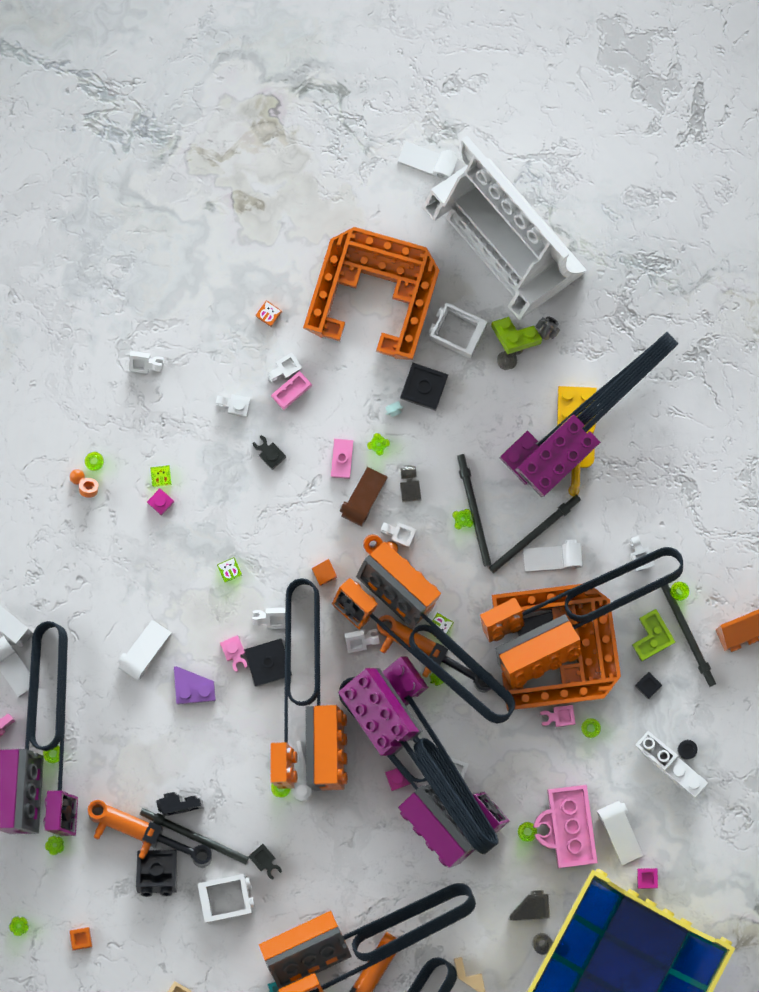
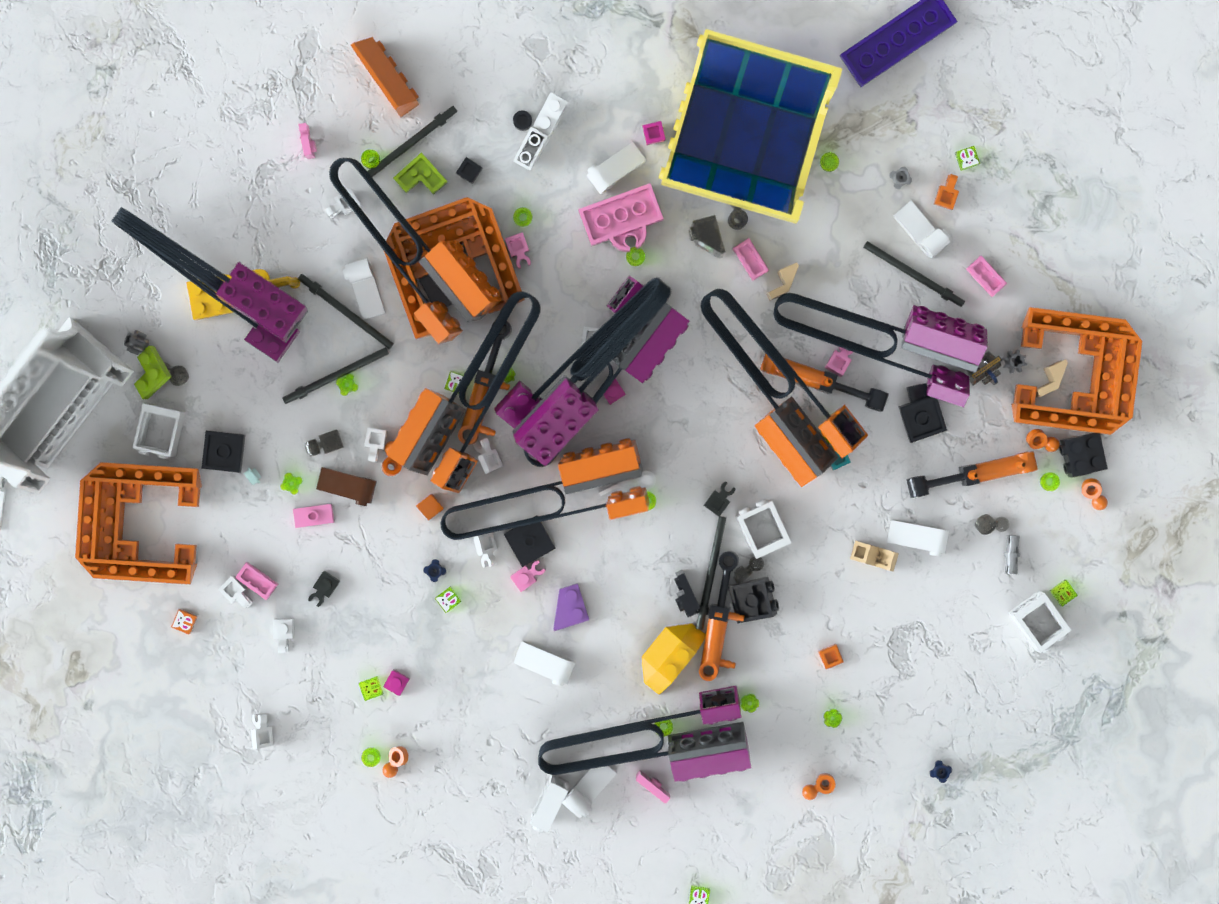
camera: 105 degrees left, 10 degrees up
(122, 776) = (670, 655): none -> yellow wedge
(186, 867) = (743, 573): none -> clear smoke plate
(260, 558) = (434, 575): none -> dark blue plate
(499, 948) = (750, 259): none -> bright pink plate
(704, 534) = (308, 144): none -> bright pink plate

